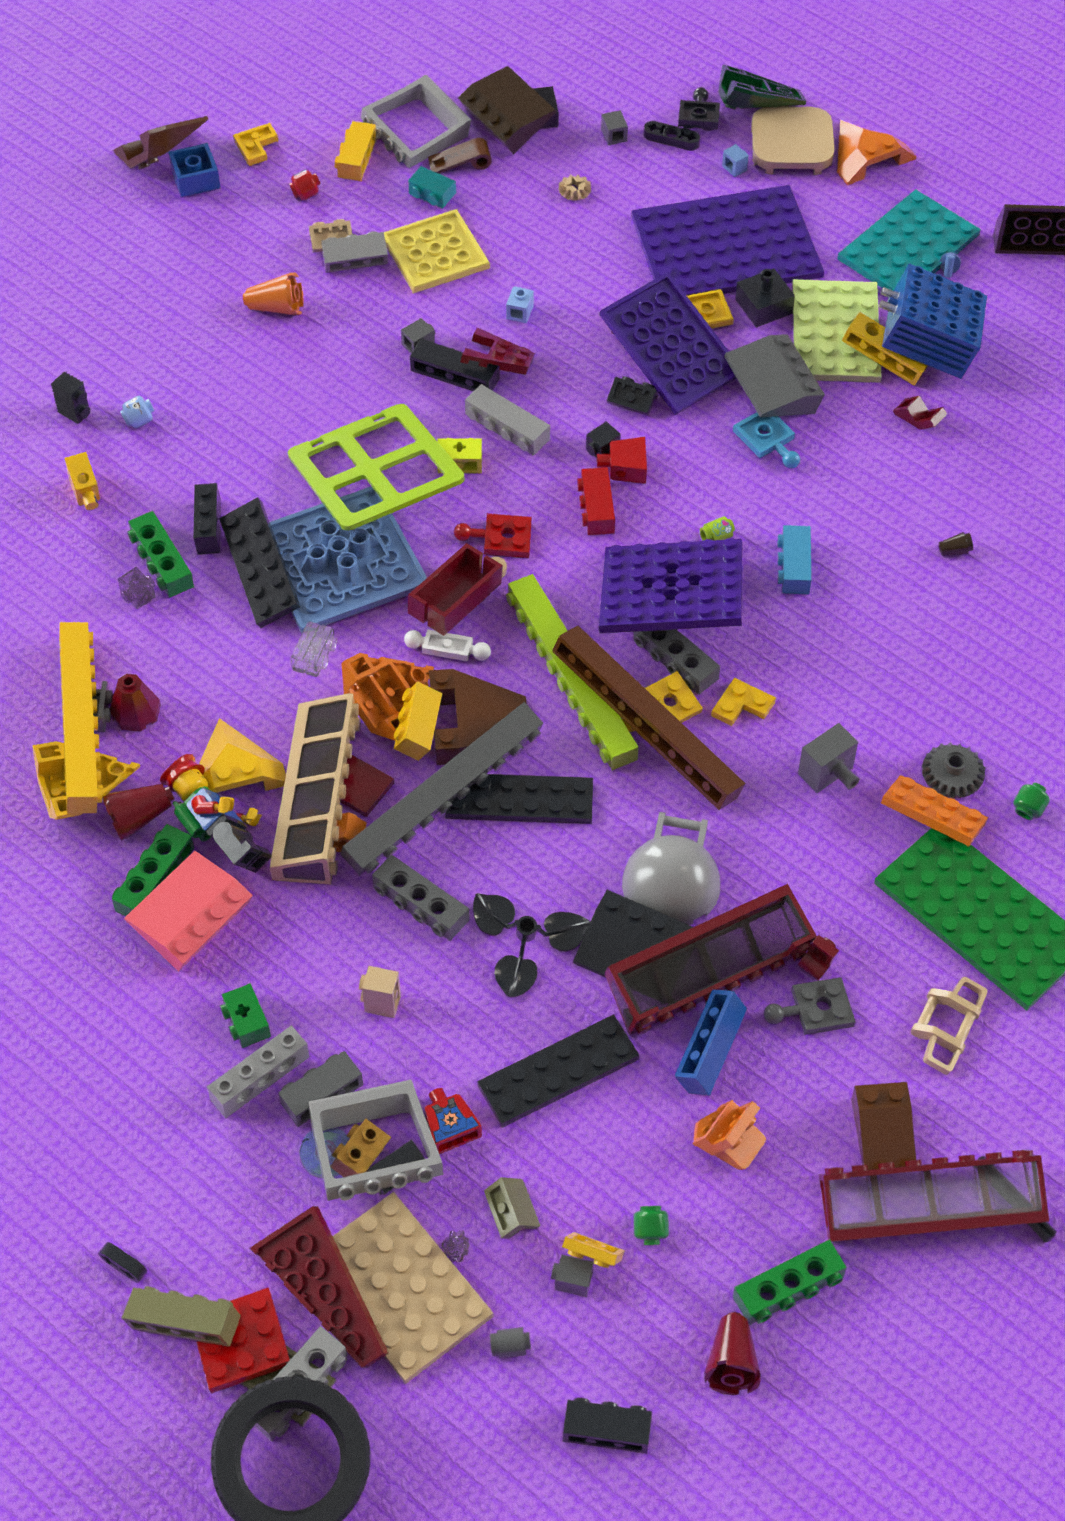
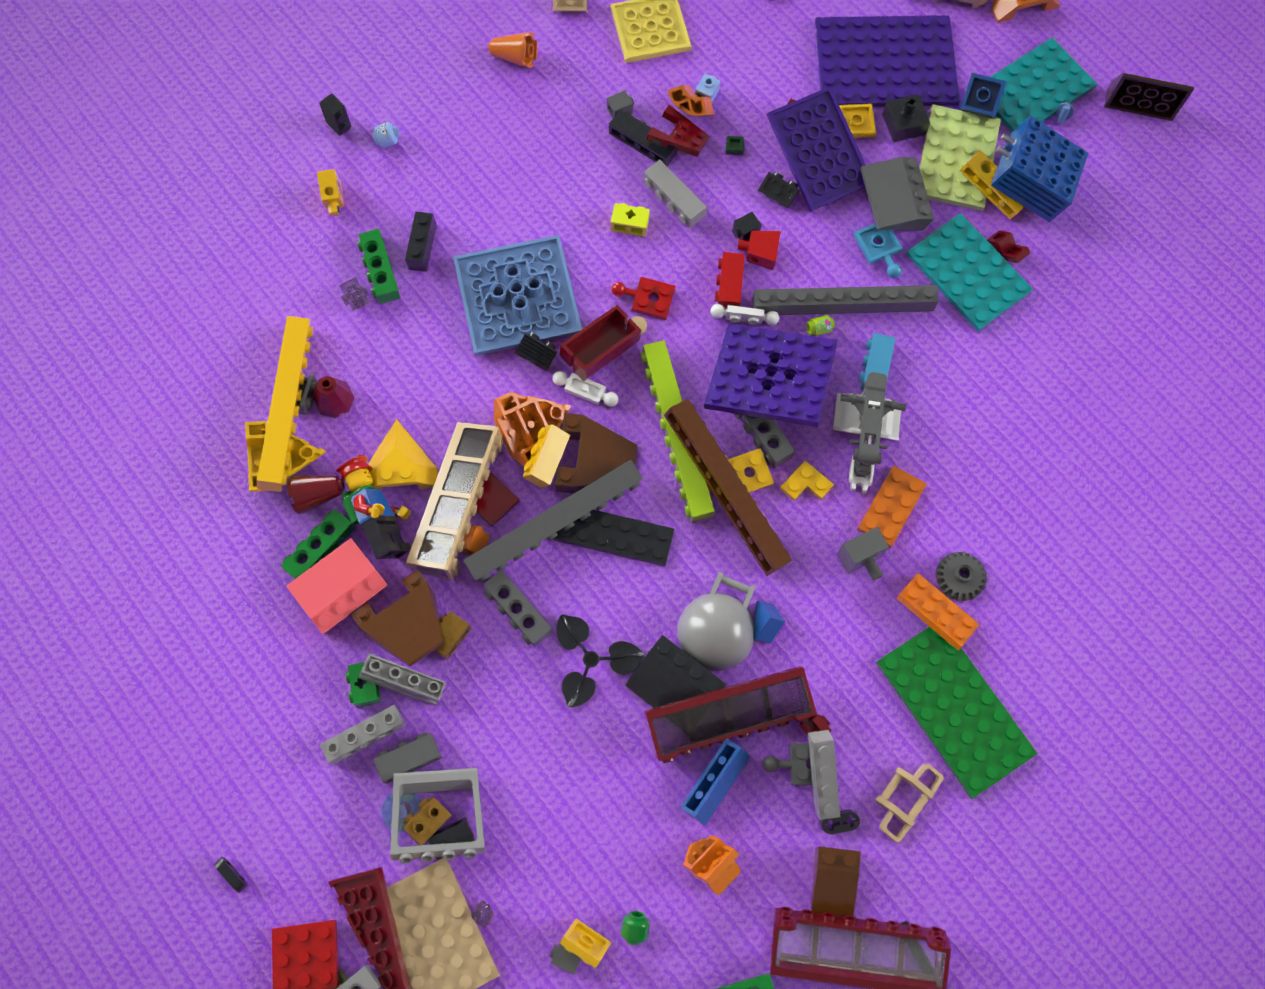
camera: 10 degrees right, 15 degrees up
(181, 1316) = (263, 934): olive brick -> none
(259, 562) = (453, 288): black plate -> none
(285, 937) = (408, 626): none -> reddish brown wedge
(295, 996) = (402, 679): none -> light grey brick
(313, 649) = (479, 373): clear brick -> none
(340, 940) = (454, 631): none -> pearl gold brick
(354, 251) = (585, 18): light grey brick -> none
(372, 468) = (555, 221): lime window -> none
(378, 612) = (536, 351): none -> black brick
(380, 991) = (468, 687): brick -> none
(451, 1121) = (499, 806): torso -> none
(506, 321) = (689, 102): none -> orange brick
(511, 1206) = (533, 888): olive panel -> none
(557, 1070) = (593, 777): black plate -> none
(567, 359) = (734, 145): none -> dark green tile
(623, 533) = (743, 314): none -> white plate
(731, 860) = (767, 622): none -> blue slope
(739, 499) = (847, 300): none -> dark grey brick
(800, 617) = (868, 416): none -> piece
(841, 1003) = (824, 774): none -> light grey brick
(850, 258) = (983, 95): none -> blue brick
(854, 703) = (893, 504): none -> orange plate
(871, 1056) = (841, 826): none -> black beam
(880, 447) = (969, 272): none -> teal plate
(956, 544) = (1010, 373): dark brown cone -> none
(1031, 801) = (1017, 618): green head -> none

